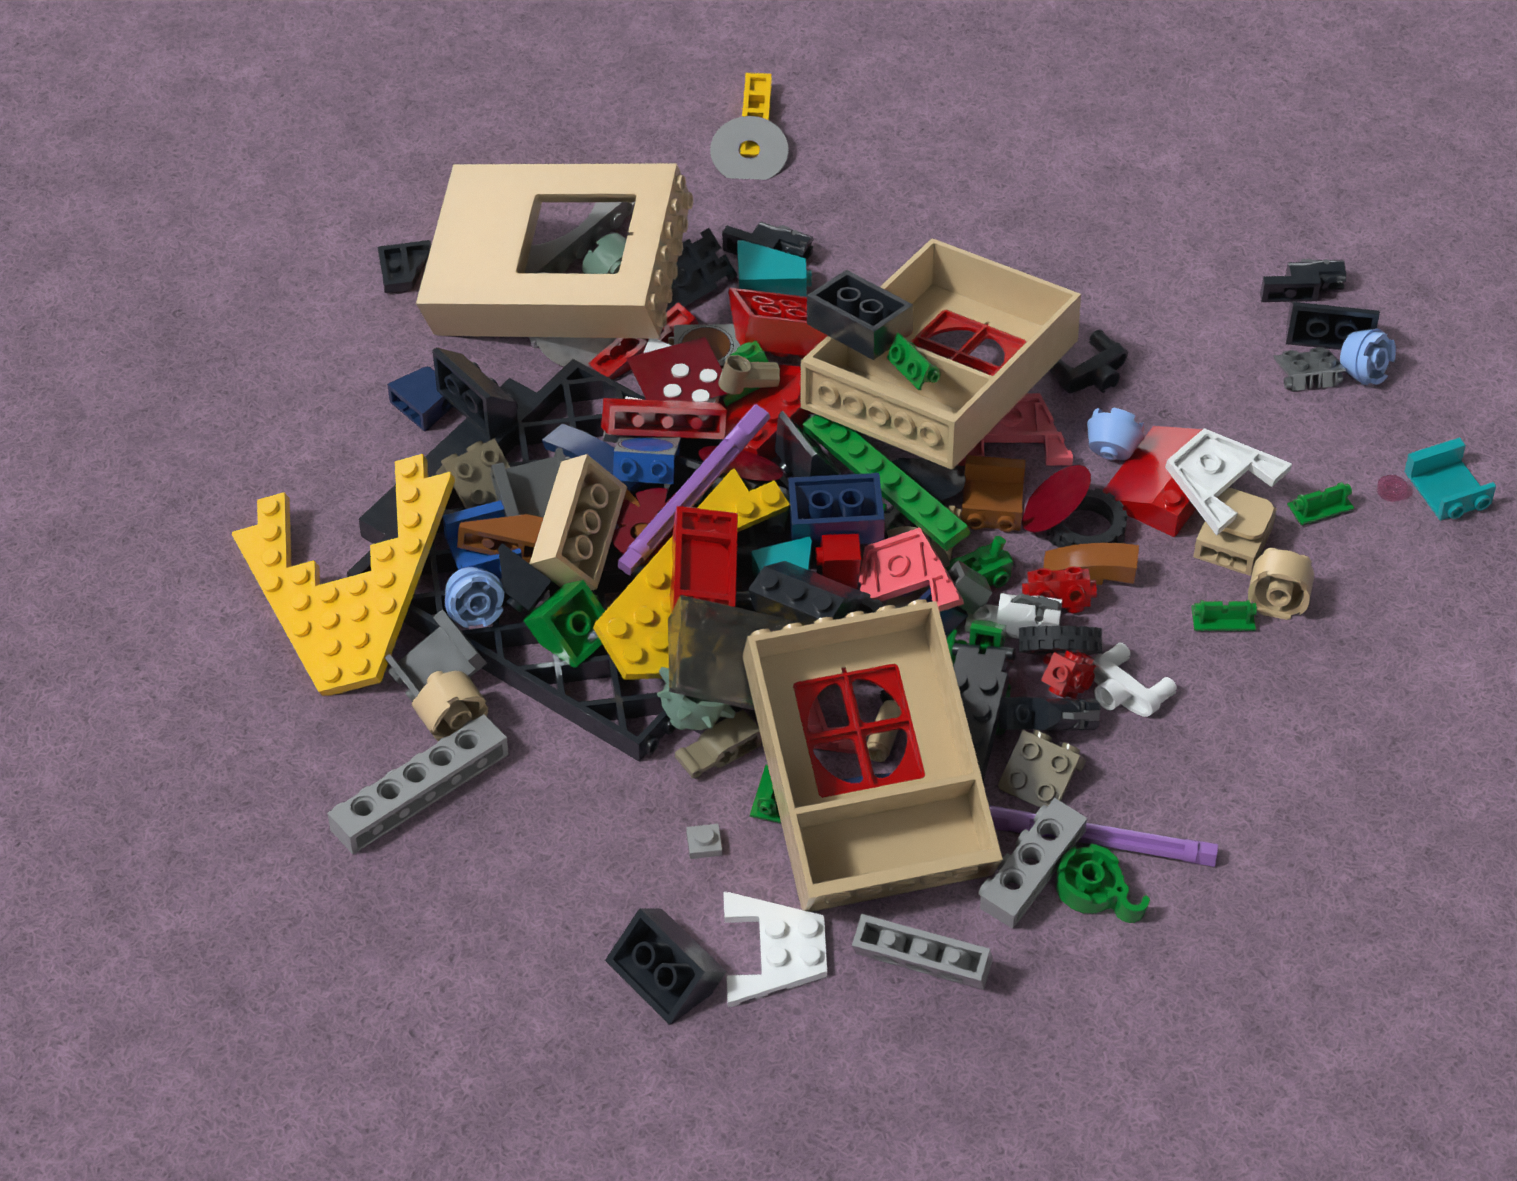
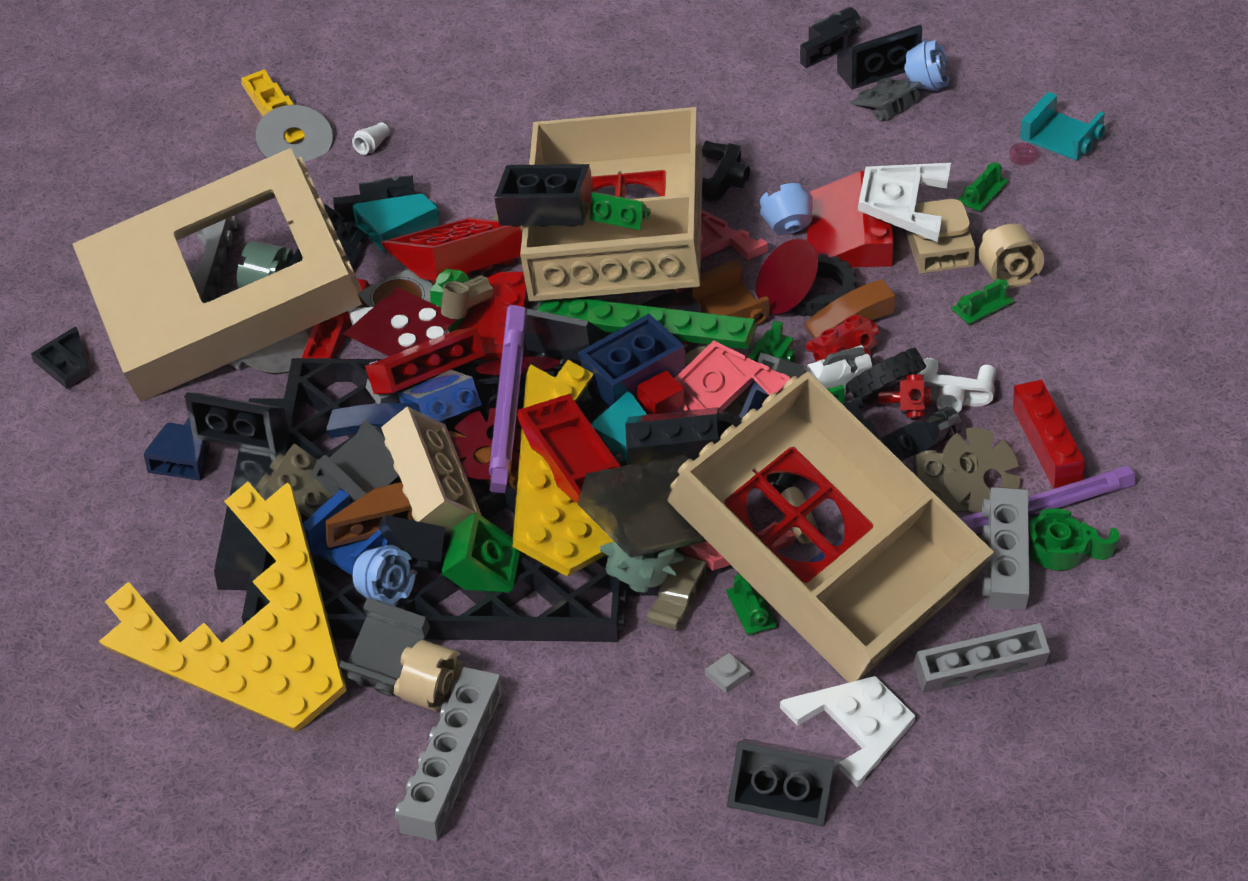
camera: 30 degrees left, 5 degrees down
(811, 183) = (370, 138): none -> white cone
(1085, 753) = (961, 482): none -> dark tan piece
(1168, 775) = (1048, 434): none -> red brick

